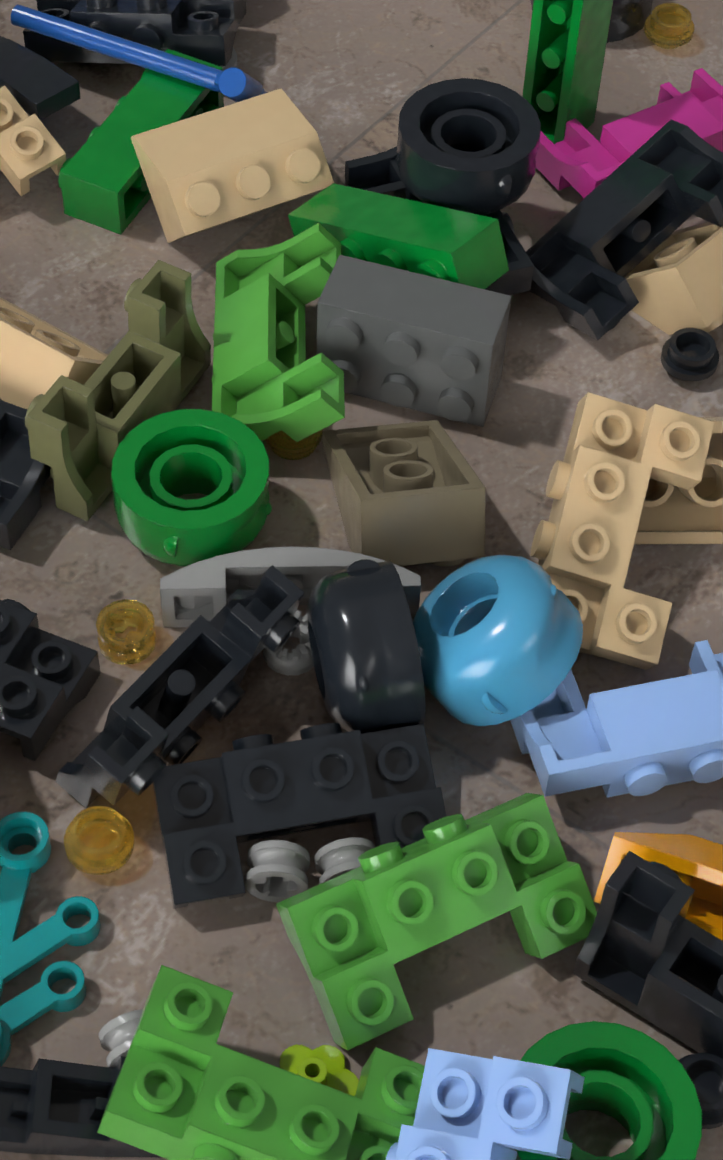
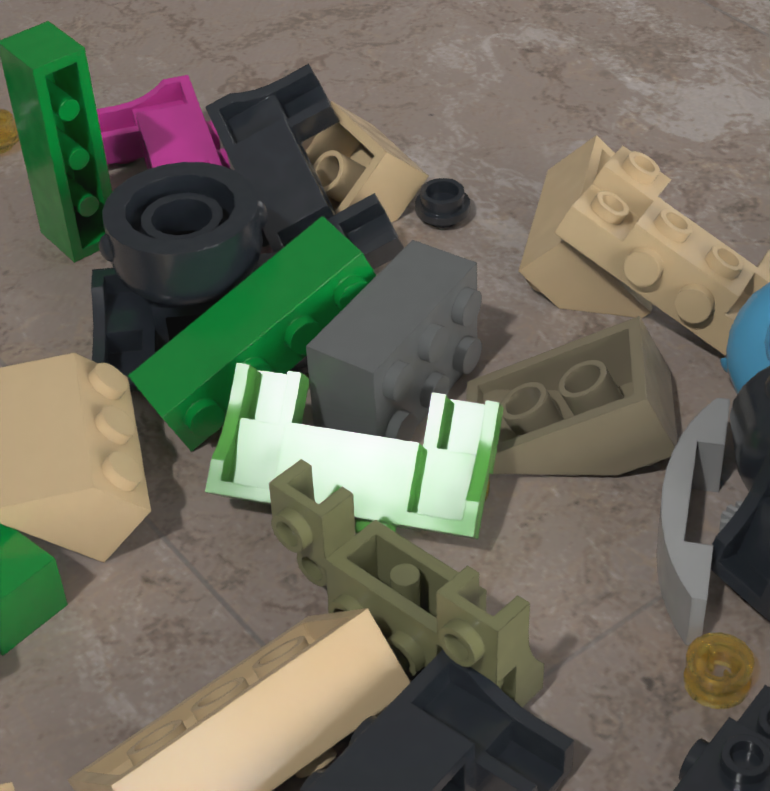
camera: 70 degrees left, 10 degrees down
(190, 455) = (565, 525): green piece -> none

